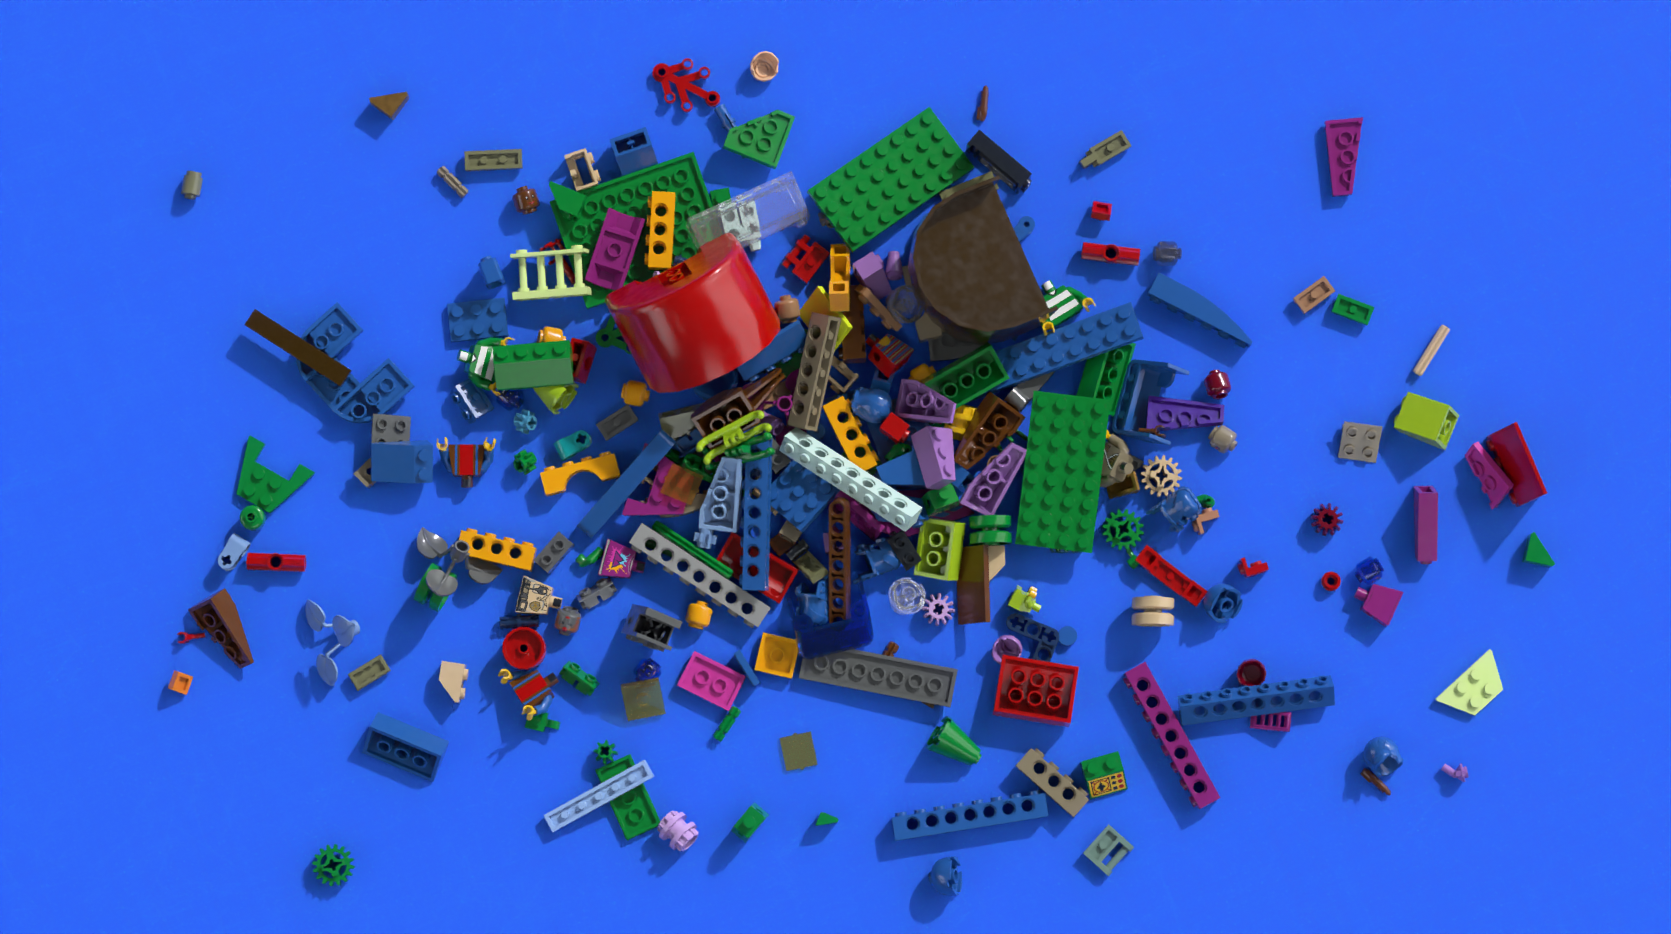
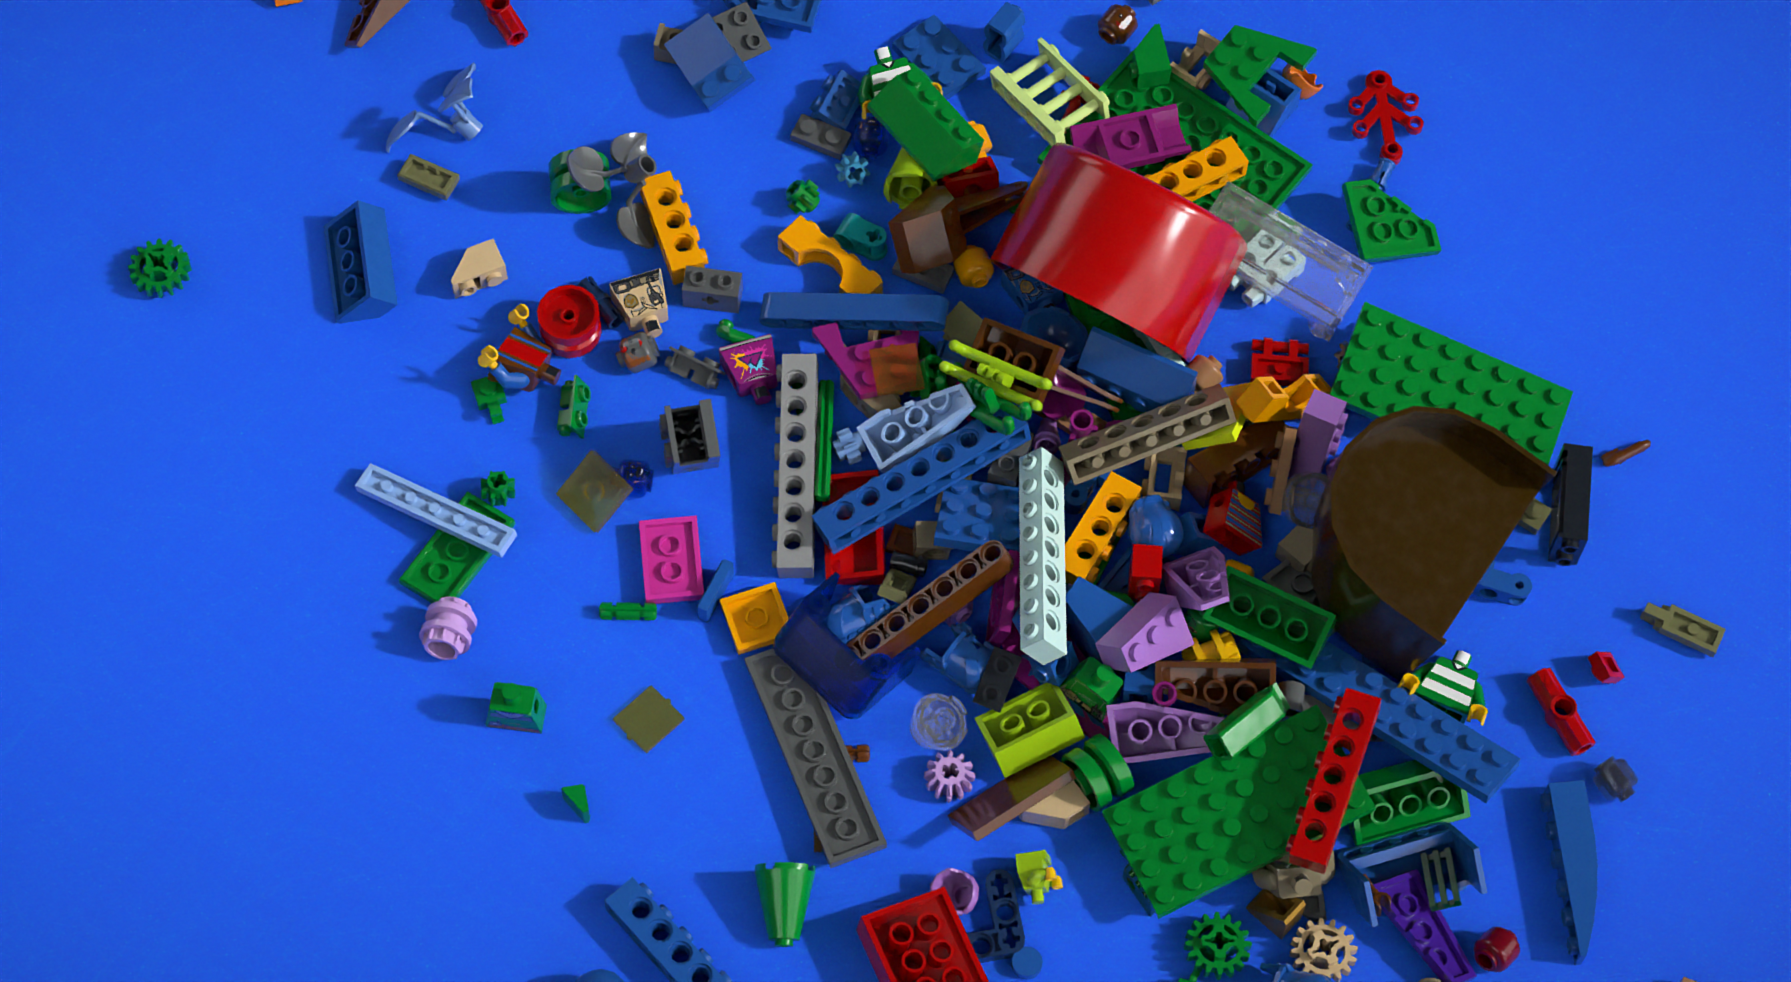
camera: 55 degrees right, 20 degrees down
(466, 460) = (760, 133): torso -> none
(487, 424) = (821, 136): none -> dark grey plate
(600, 398) = (935, 223): none -> reddish brown slope
(606, 148) = (1242, 61): none -> green wing
(633, 119) = (1302, 80): none -> orange hair
(698, 615) = (745, 494): light orange head -> none
(764, 66) = (1474, 180): light nougat hair -> none
(972, 471) = (1158, 693): none -> magenta hinge
(1022, 435) = (1247, 723): none -> green piece
(1119, 450) = (1317, 853): none -> red brick
(1149, 381) = (1436, 857): none -> dark green tile

